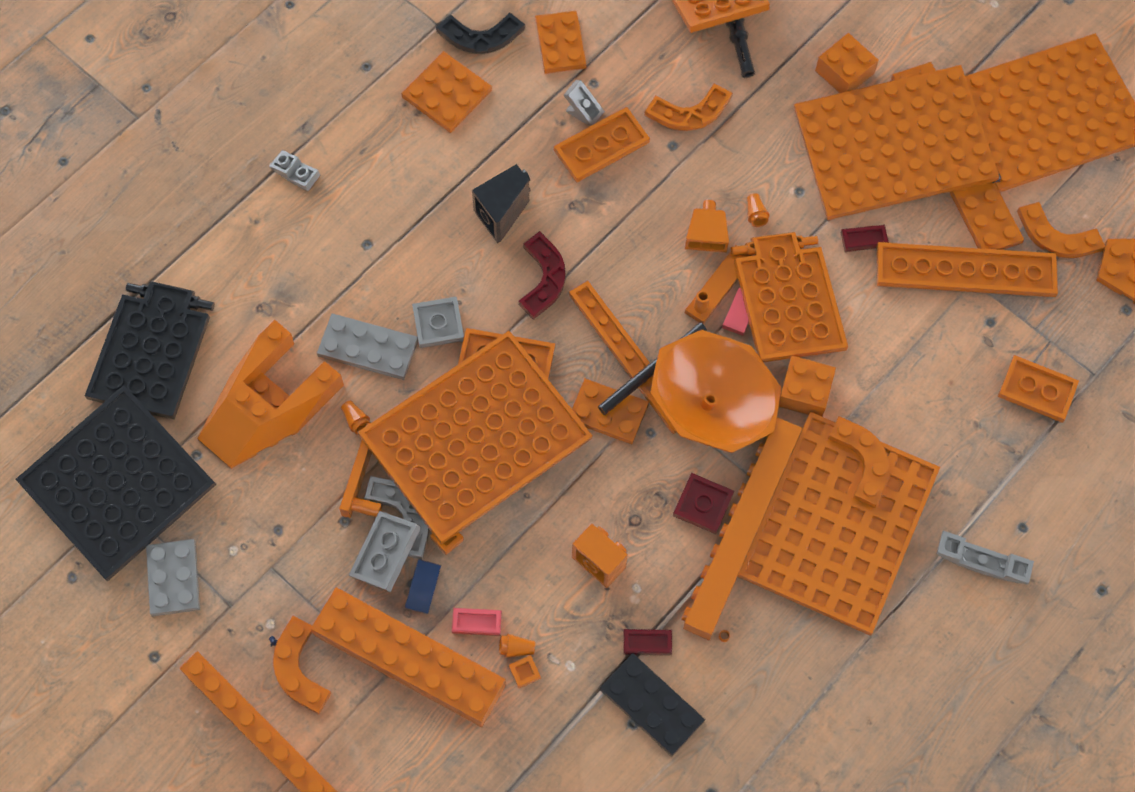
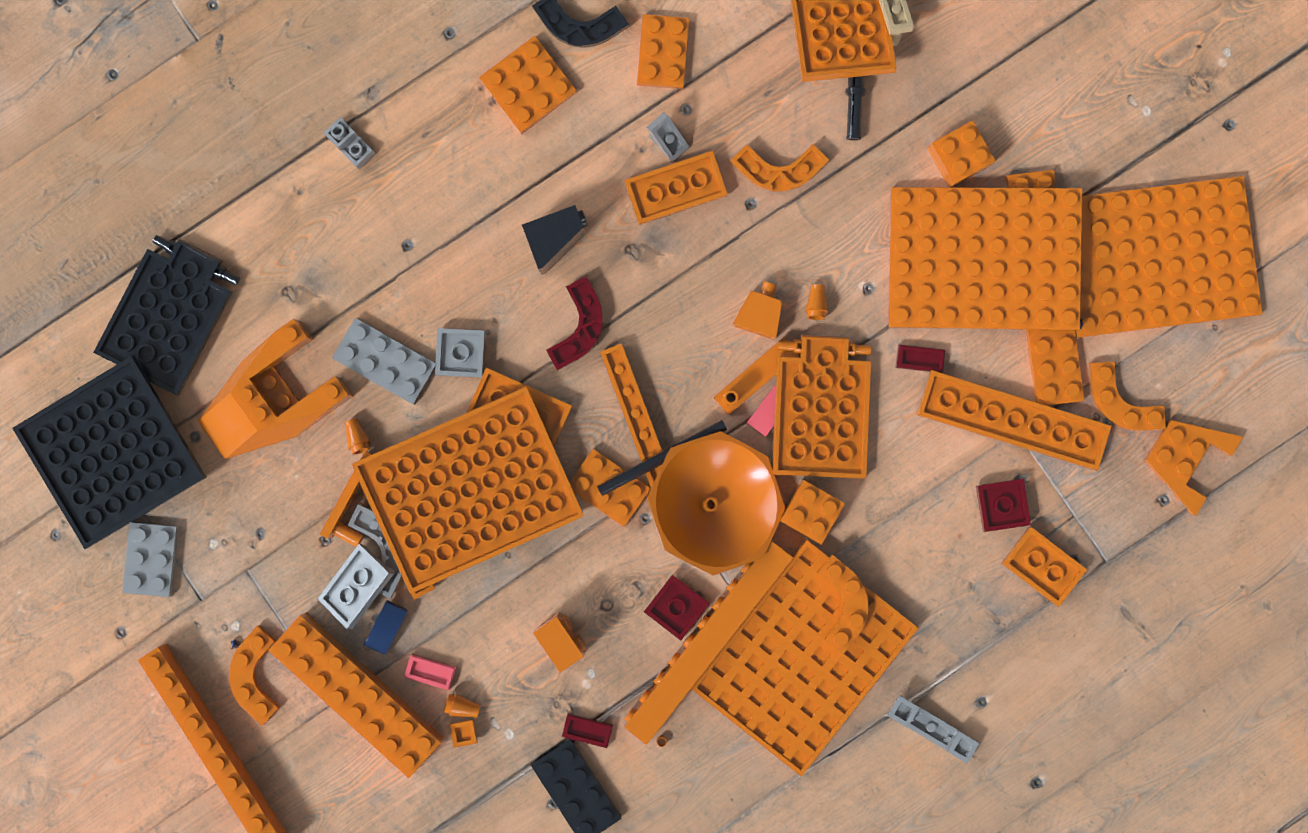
camera: 15 degrees right, 20 degrees up
(982, 343) = (1003, 505): none -> dark red plate

